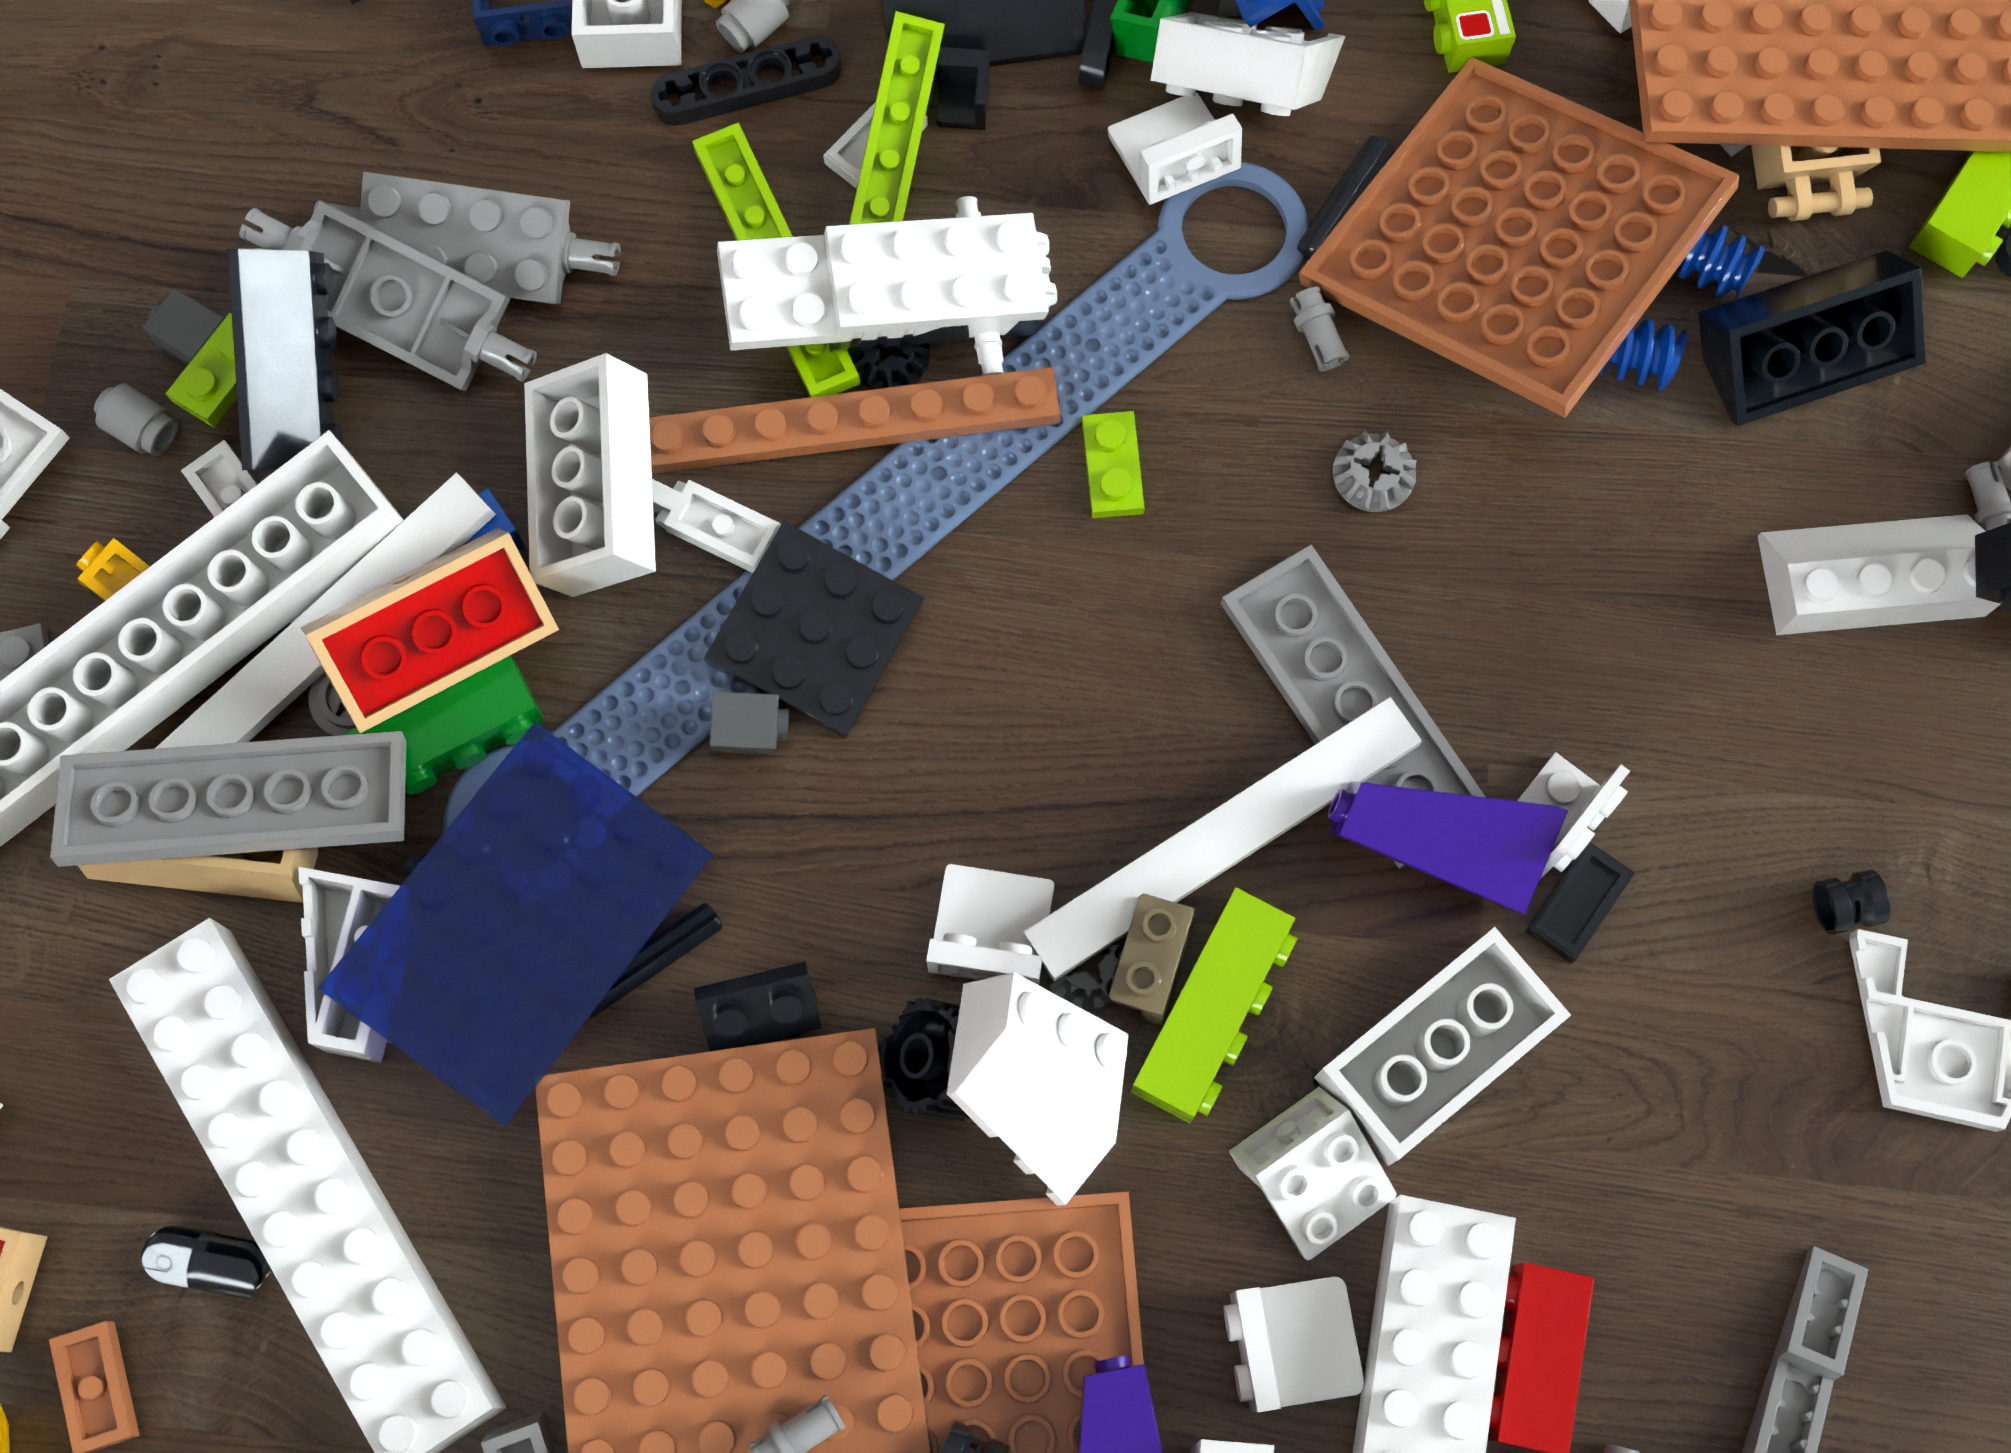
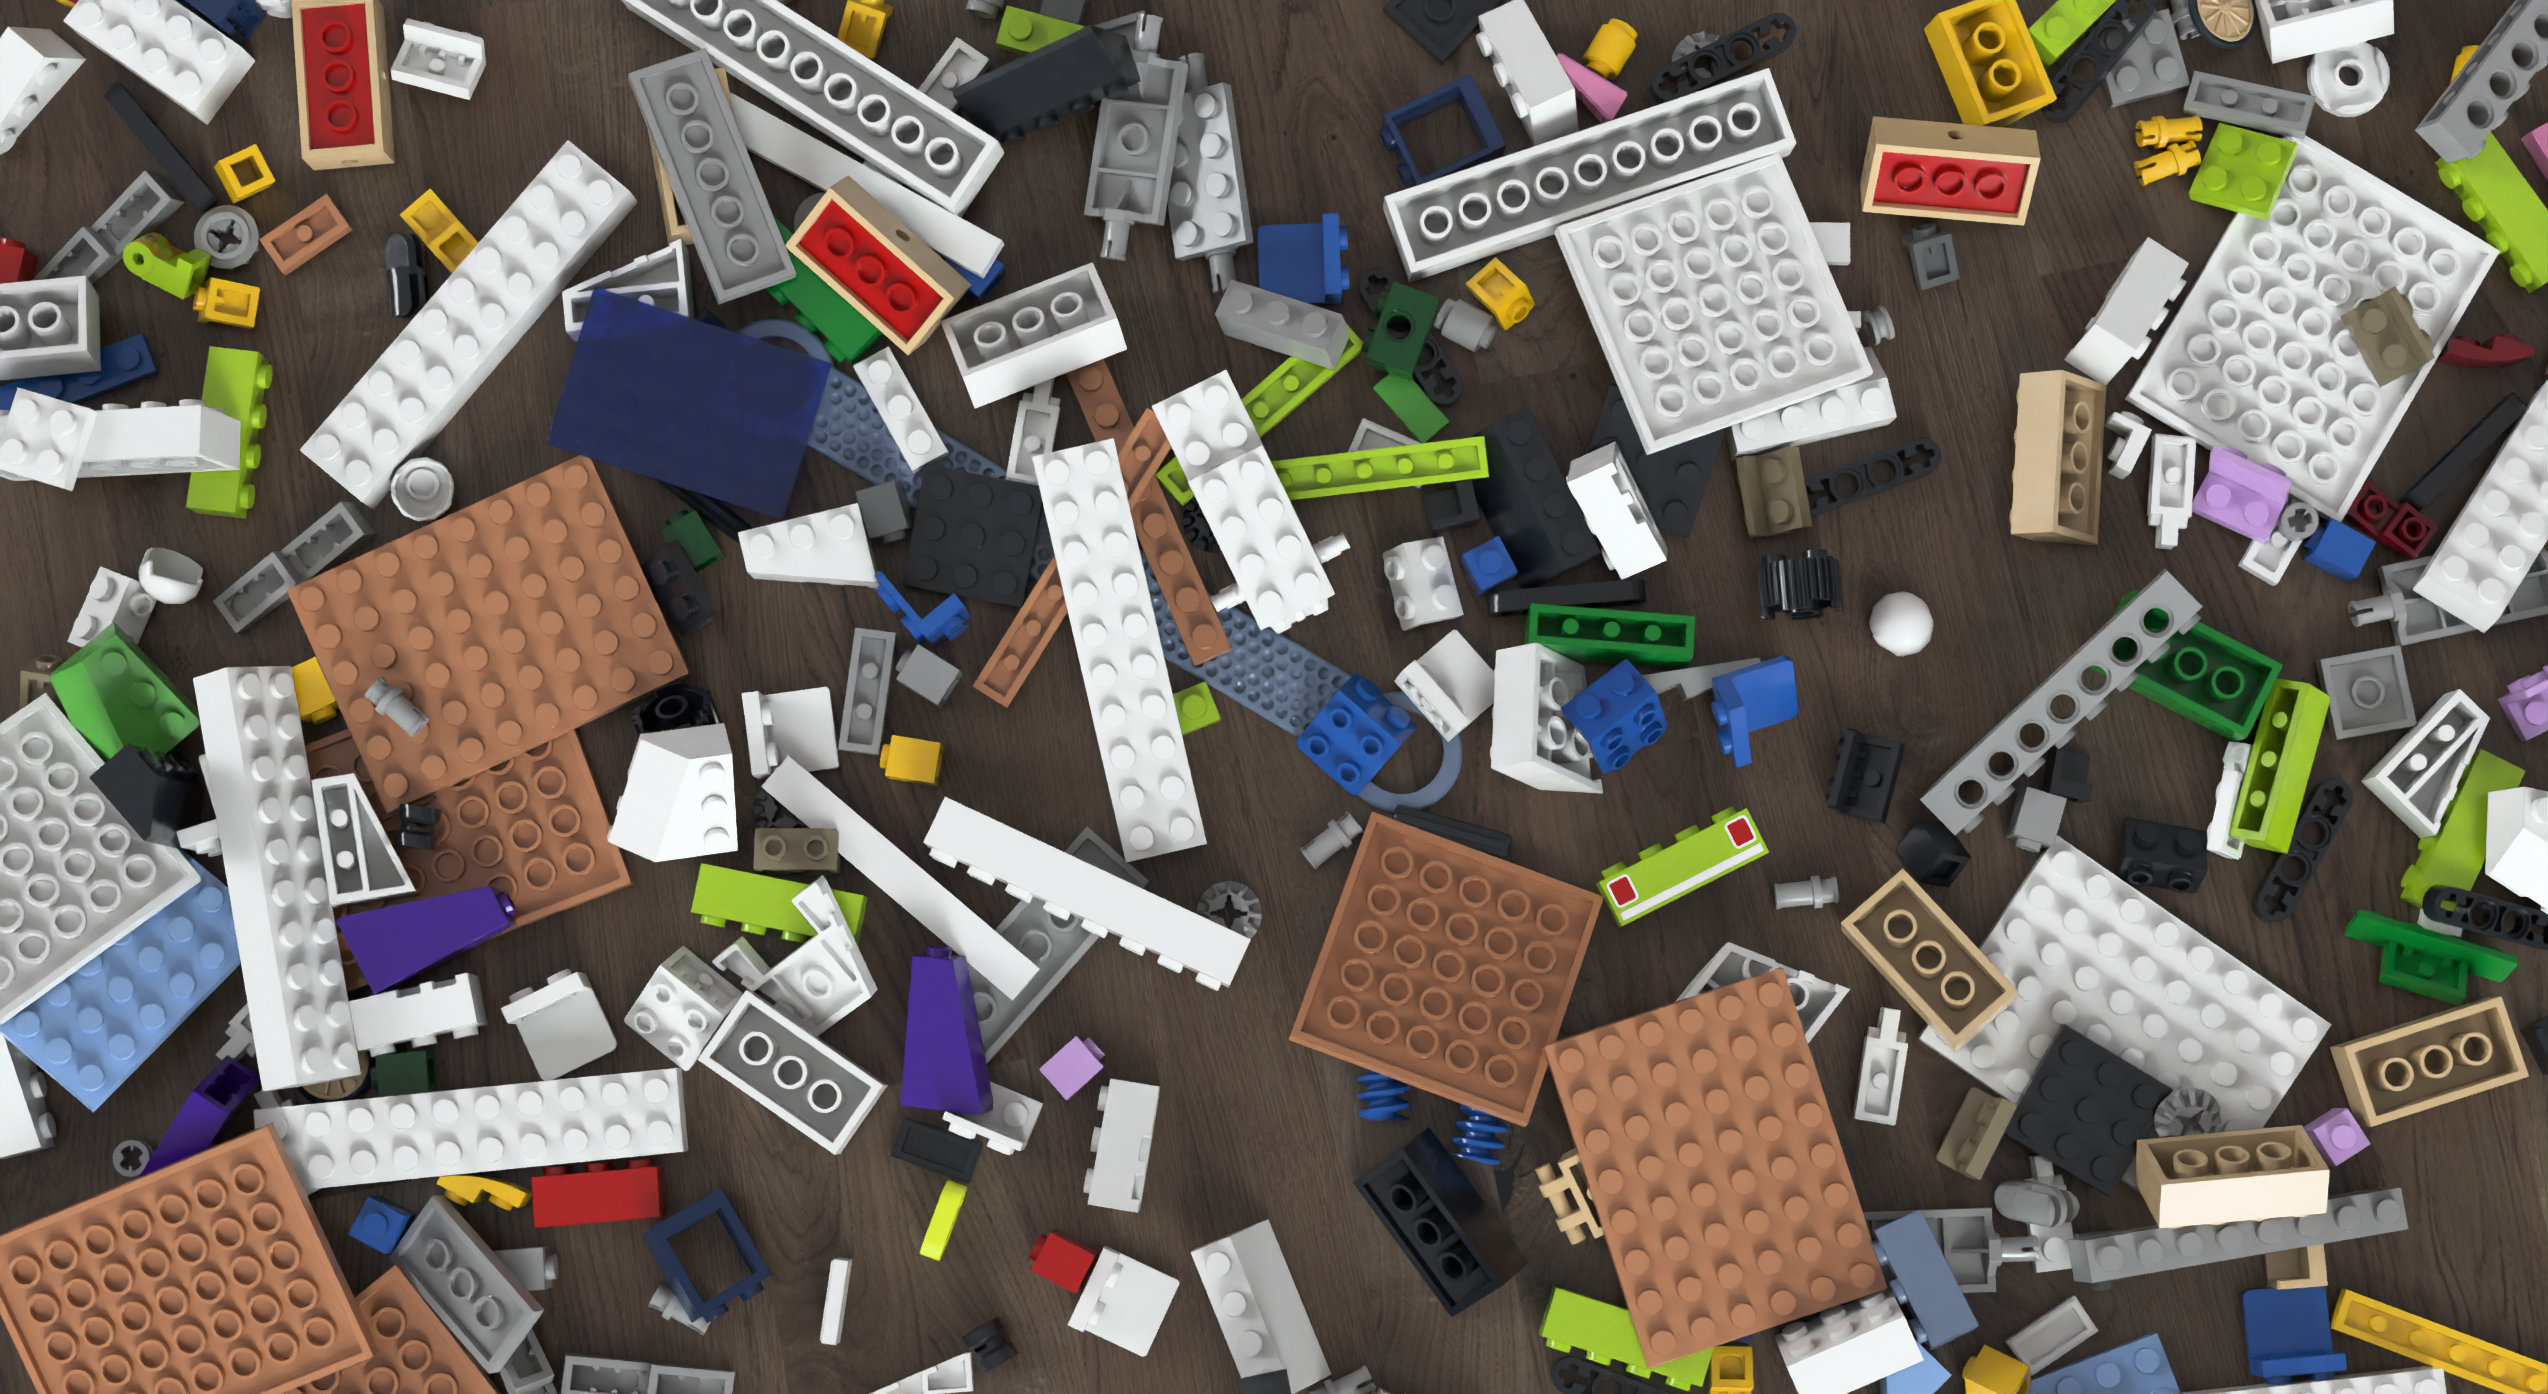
camera: 70 degrees right, 10 degrees up
(165, 1198) = (439, 230): none -> yellow slope
(504, 1322) = (422, 489): none -> white hair
(616, 159) = (1304, 260): none -> blue bracket
(622, 672) = (900, 410): none -> white plate
(682, 193) = (1282, 324): none -> light grey brick
(693, 970) = (694, 539): none -> dark green brick
(724, 47) = (1400, 355): none -> dark green brick
(764, 823) = (813, 548): none -> white wedge
(825, 105) = (1411, 407): none -> bright green piece
(887, 511) = (1046, 603): none -> nougat plate
(901, 721) = (943, 622): none -> blue bracket
(968, 816) = (867, 691): none -> light grey plate
(972, 734) = (927, 675): none -> light grey brick
(1017, 481) = (1119, 650): none -> white brick
(1041, 148) = (1422, 583): none -> white bracket
(1047, 66) = (1488, 566): none -> blue brick
(1075, 783) = (912, 760): none -> yellow brick
(1204, 261) = (1356, 734): none -> blue bracket
(1316, 603) = (1086, 892): none -> white brick
(1328, 979) = (817, 980): none -> white wing
(1520, 700) = (1073, 1066): none -> lavender brick
(1610, 1263) = (657, 1242): none -> dark blue window
(1638, 667) = (1122, 1145): none -> white wedge
(1676, 915) = (943, 1220): none -> neon yellow beam
(1709, 1297) = (668, 1303): none -> light grey pin
(1751, 1081) = (835, 1301): none -> white tile
(1771, 771) = (1062, 1259): none -> red brick
(1828, 727) = (1124, 1301): none -> white bracket

